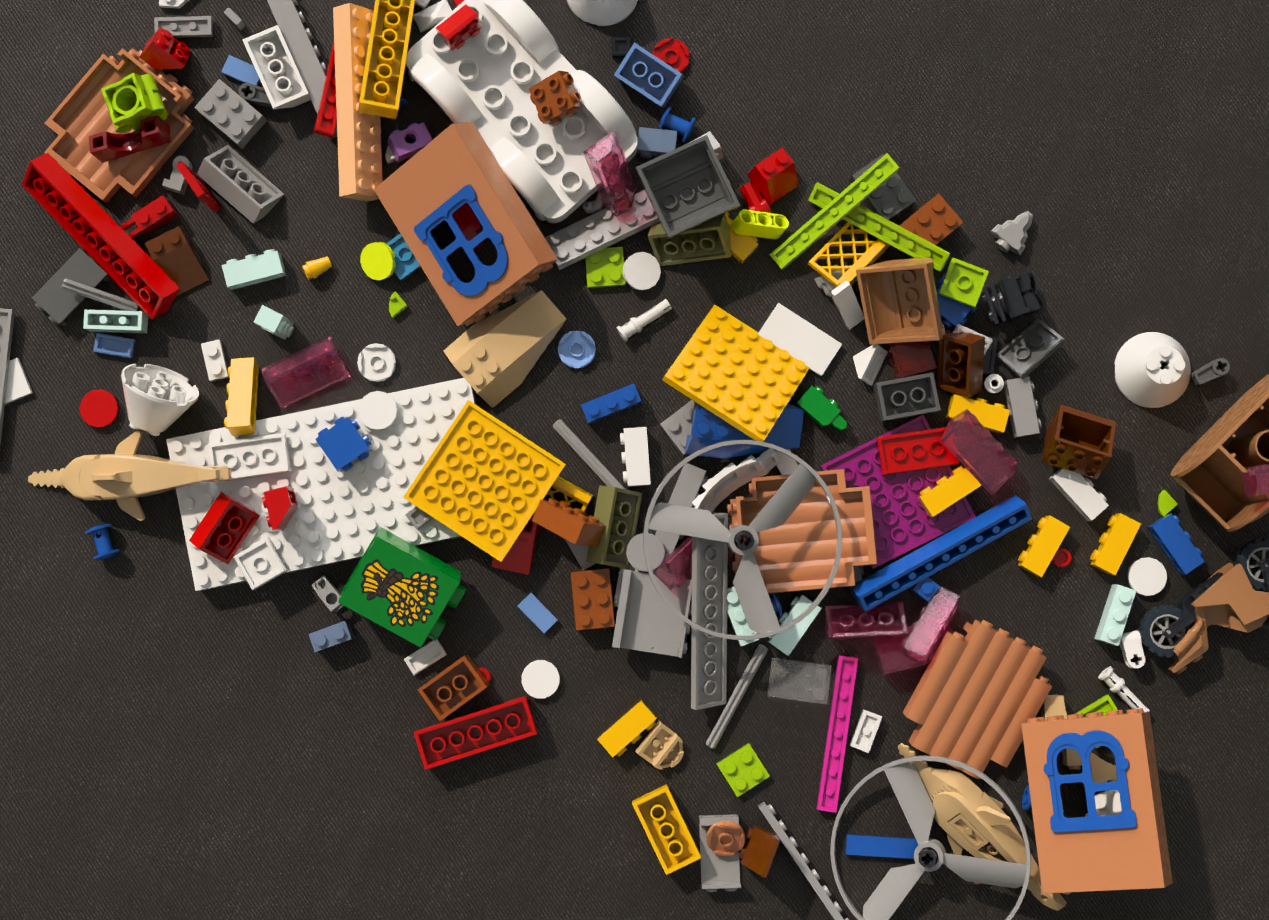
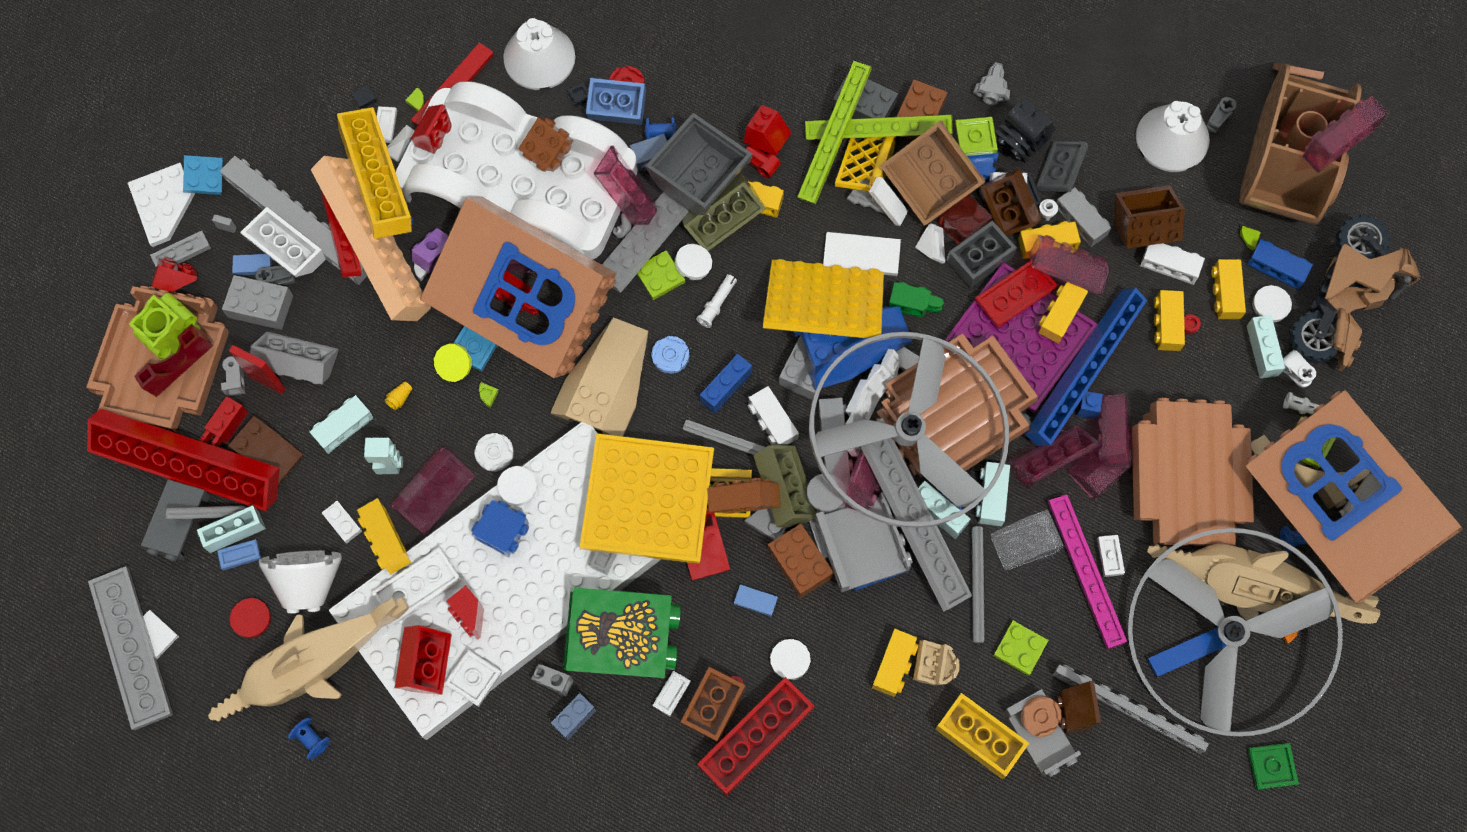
camera: 25 degrees left, 15 degrees down
(760, 224) = (776, 173): neon yellow beam -> none

